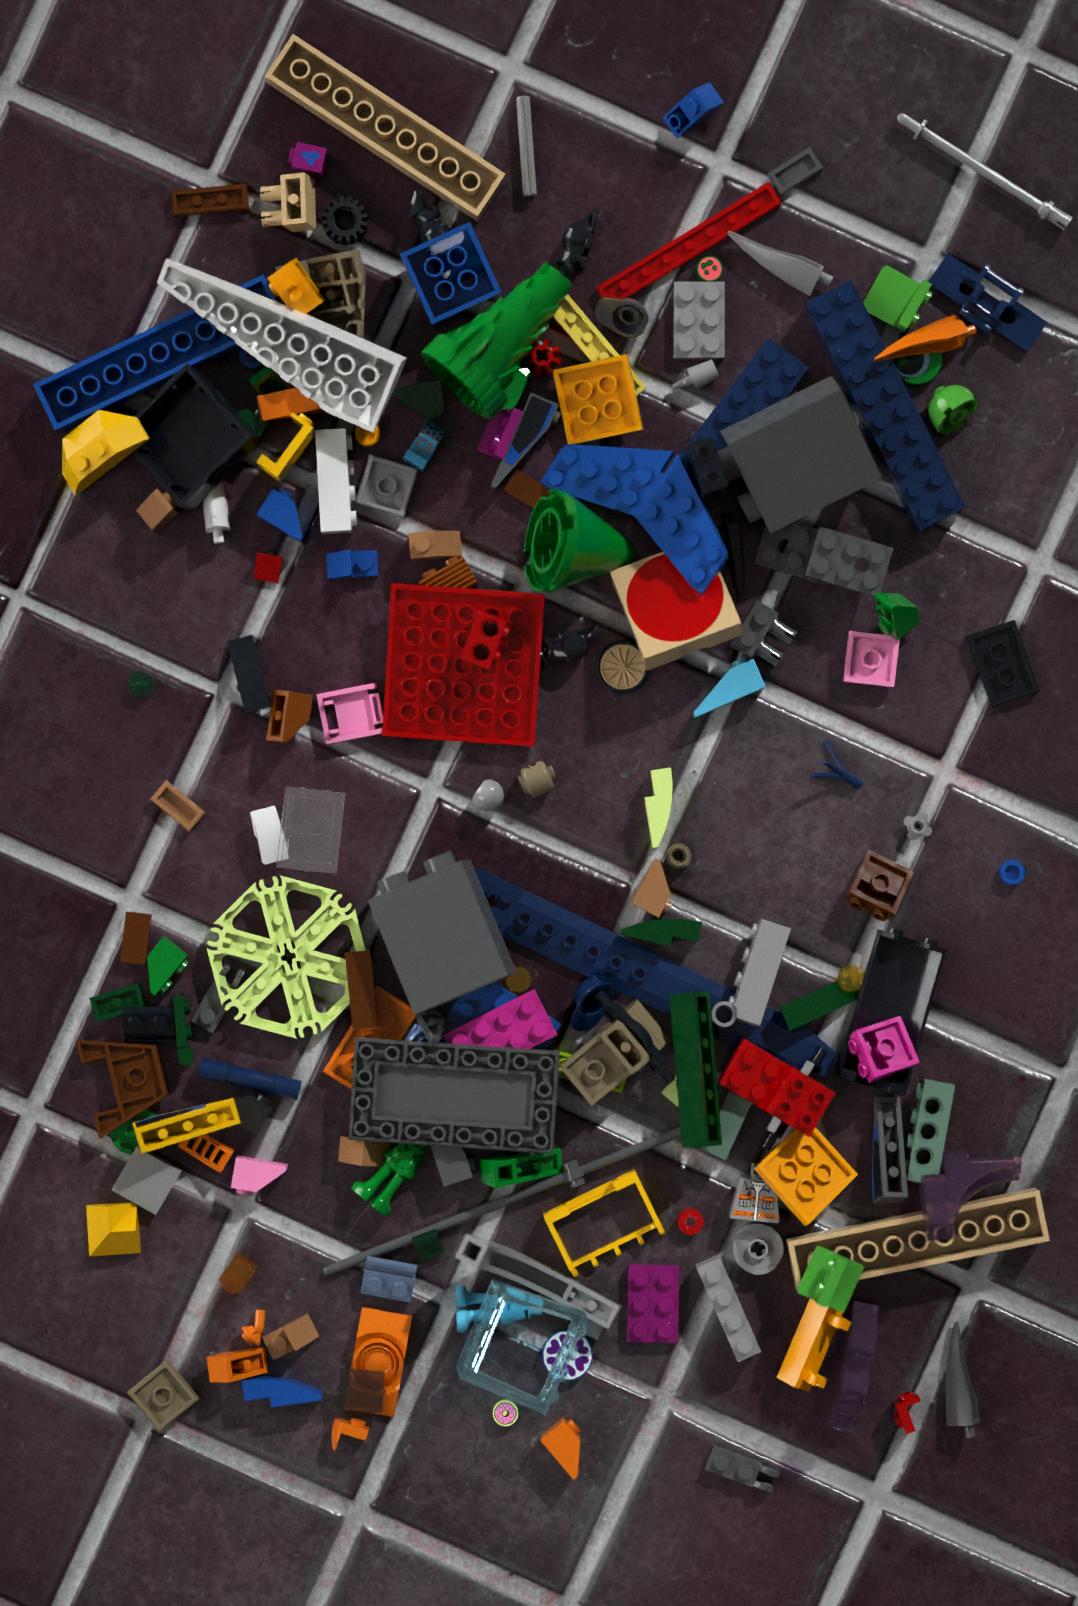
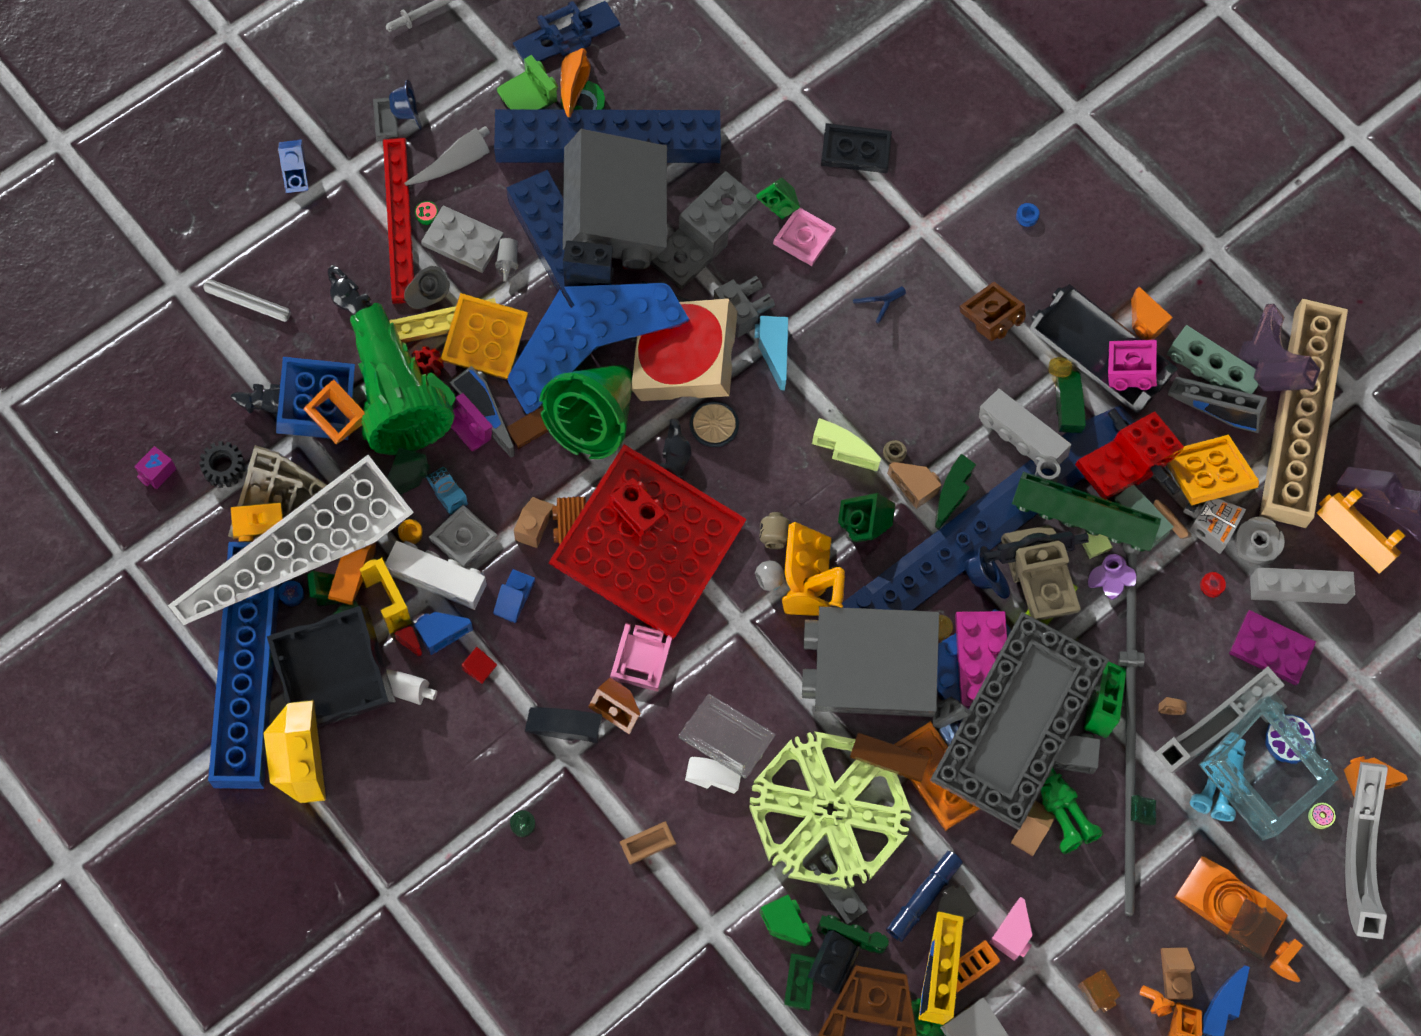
camera: 65 degrees left, 20 degrees down
(136, 938) = (748, 938): reddish brown tile -> none
(158, 510) = (378, 729): medium nougat slope -> none
(210, 200) = (139, 565): reddish brown tile -> none
(259, 492) = (408, 639): none -> red slope
(297, 203) = (178, 489): tan brick -> none
(385, 127) = (164, 394): tan brick -> none
(388, 1279) = (1160, 859): sand blue plate -> none
(450, 309) = (346, 406): none -> orange tile
(477, 1465) = (1361, 845): none -> light grey arch
(508, 830) = (809, 572): none -> light orange plate
(543, 1232) = (1172, 706): none -> medium nougat tile
(590, 860) = (866, 516): none -> dark green slope
(613, 1185) = (1159, 677): yellow hinge -> none
(646, 1123) = (1112, 579): none -> medium lavender plate
(737, 1154) = (1178, 528): none -> medium nougat tile
(815, 184) = (404, 104): none -> dark blue piece
(830, 1279) = (1313, 484): bright green bracket -> none
(913, 832) = (955, 269): light grey plate -> none
(949, 1042) = (1148, 316): none -> orange slope
(950, 407) = (633, 89): bright green cylinder -> none

